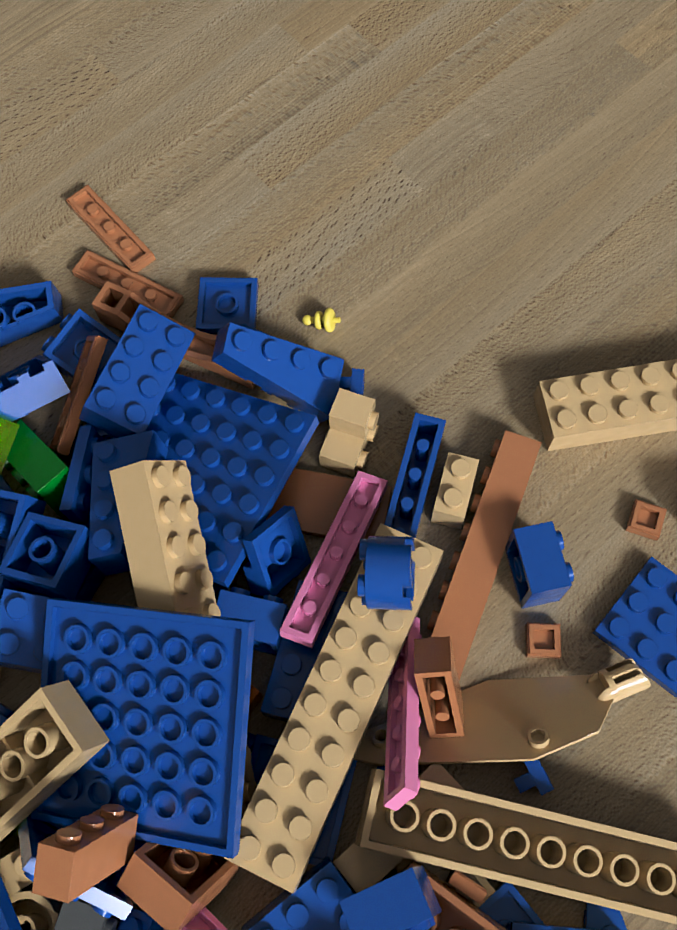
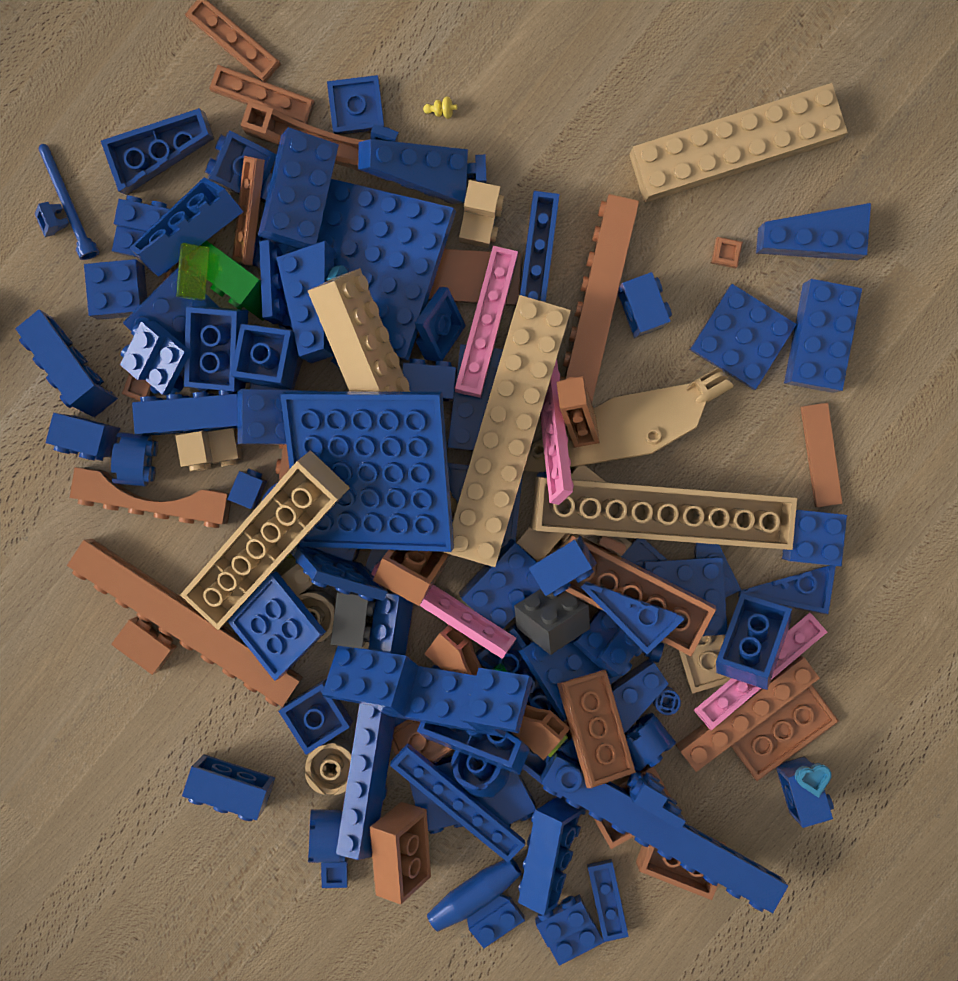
camera: 15 degrees left, 20 degrees up
(84, 853) = (352, 563): nougat brick -> none
(388, 573) = (532, 338): blue brick -> none
(454, 490) = (572, 250): tan brick -> none
(535, 777) = (653, 463): blue tile -> none
(543, 640) = (652, 361): nougat tile -> none

